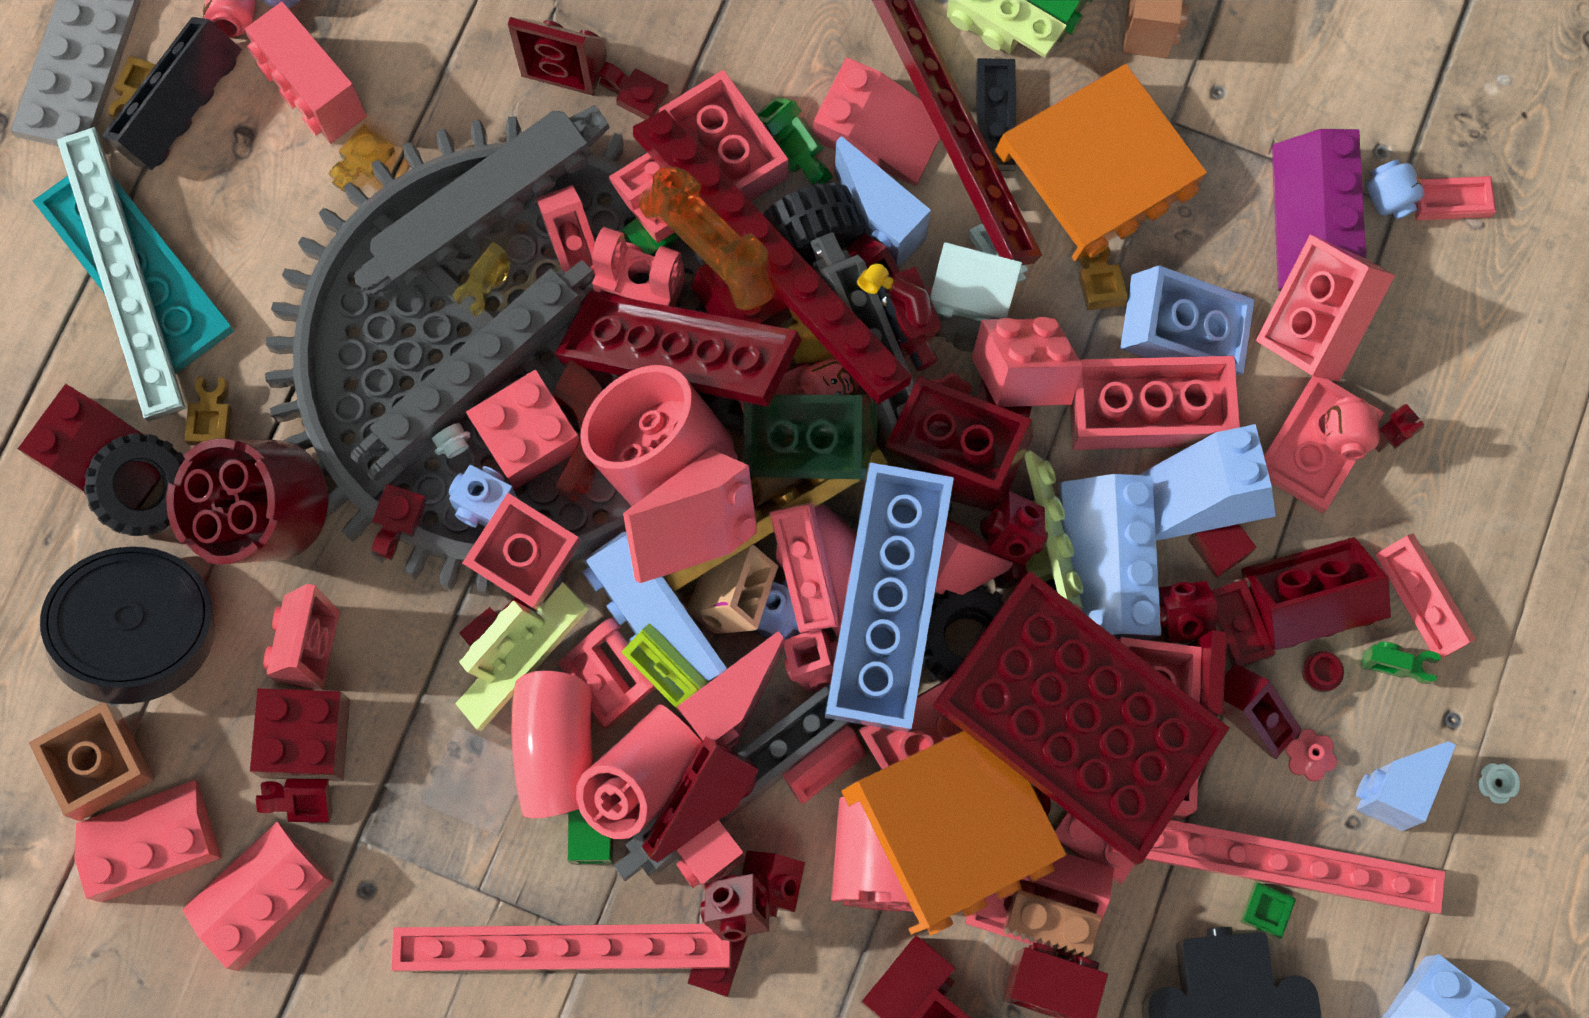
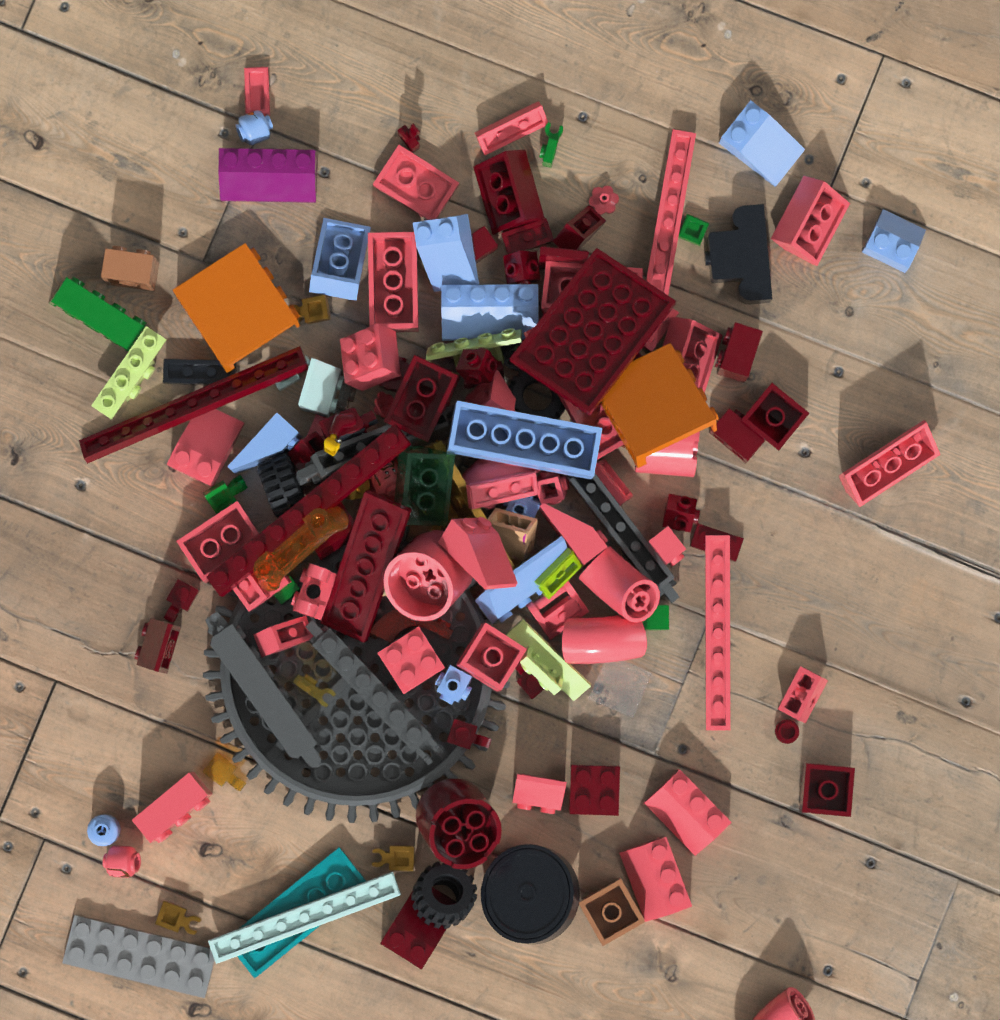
camera: 90 degrees left, 10 degrees up
(172, 93) = (183, 893): black brick -> none
(301, 798) = (632, 788): dark red plate -> none
(451, 441) = (416, 705): light aqua plate -> none
(704, 794) = (636, 548): dark red slope -> none
(736, 907) = (698, 530): dark red brick -> none
(778, 114) = (200, 509): green tile -> none
(1052, 923) = (707, 352): nougat brick -> none
(1323, 671) = (555, 190): dark red plate -> none
(1324, 308) = (337, 176): coral slope -> none
(1352, 428) = (412, 165): coral head -> none
(1405, 788) = (625, 148): light blue slope -> none
(1509, 780) = (620, 100): light aqua plate -> none

